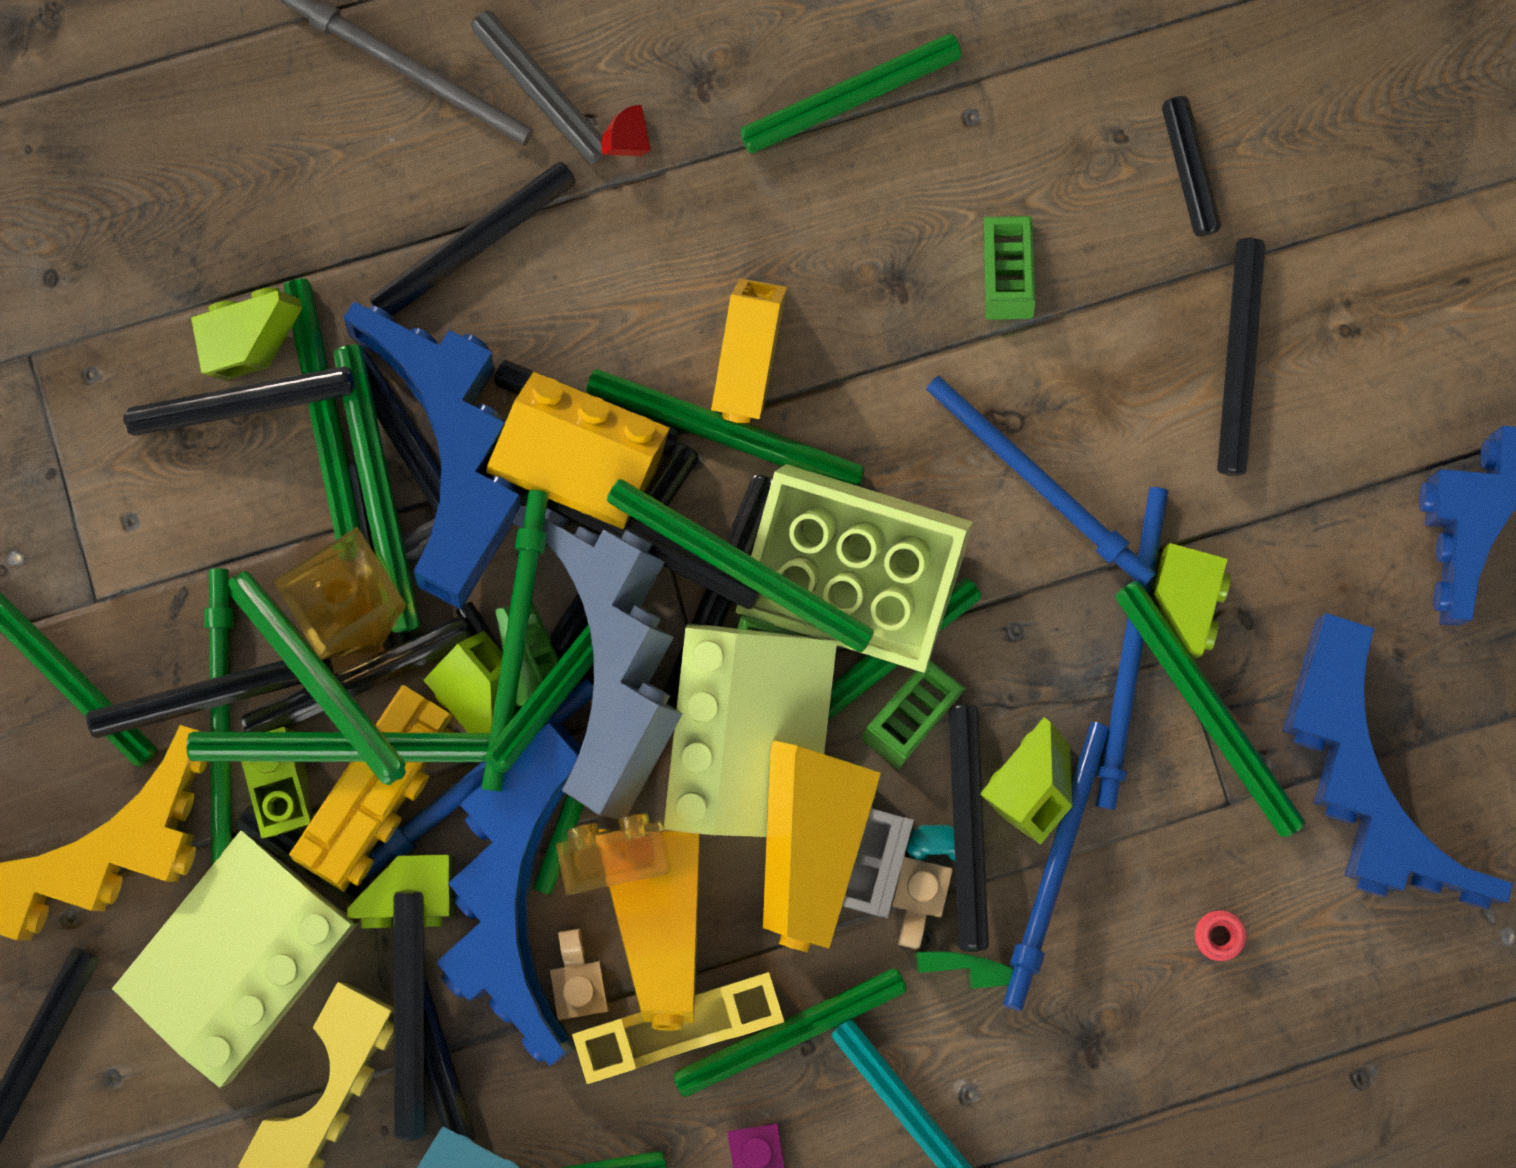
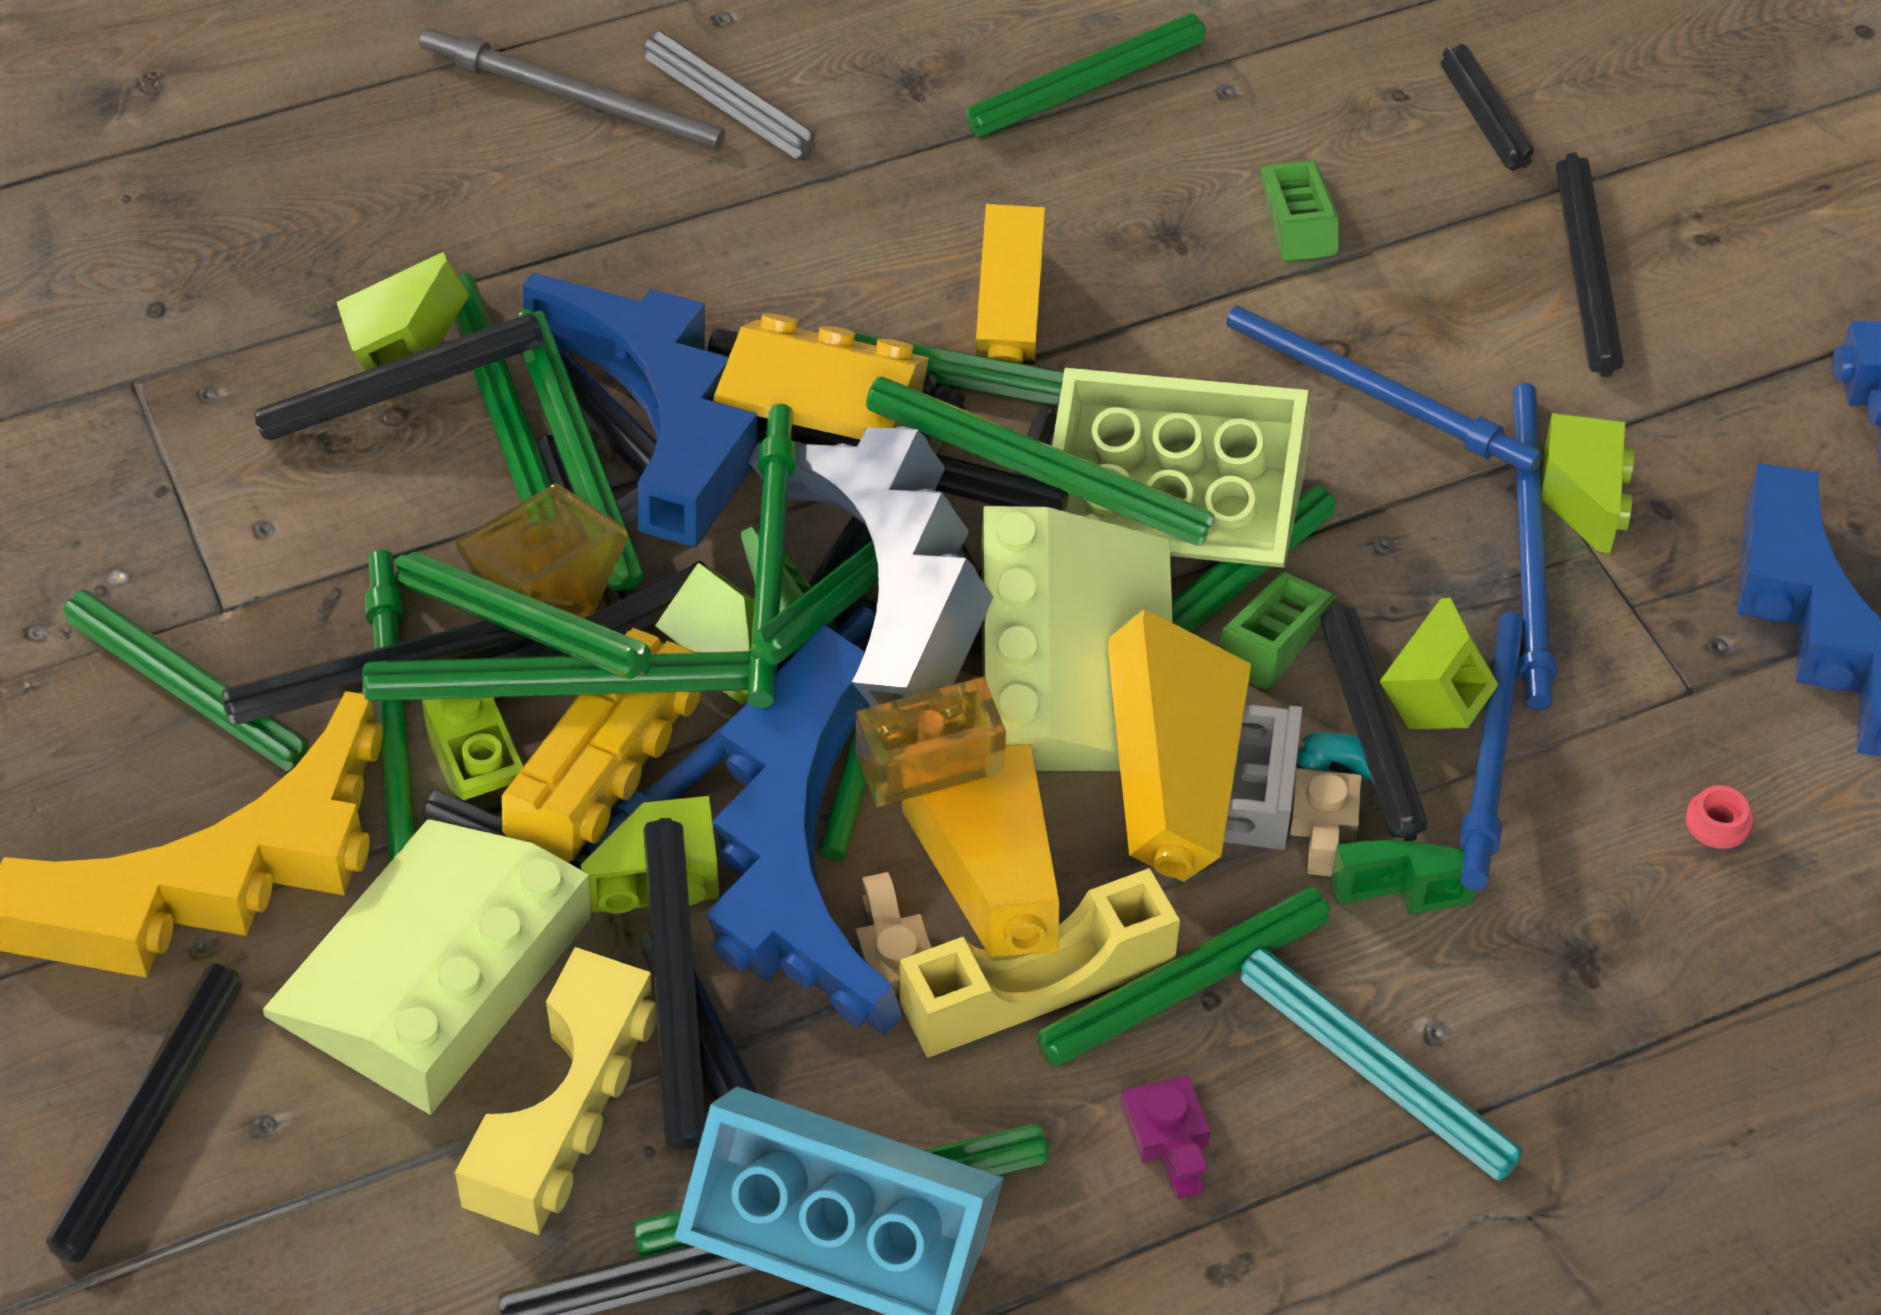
camera: 10 degrees left, 30 degrees down
(474, 239) = (676, 223): black axle -> none
(626, 134) = (836, 124): red tile -> none
(1210, 709) = (1646, 586): green axle -> none

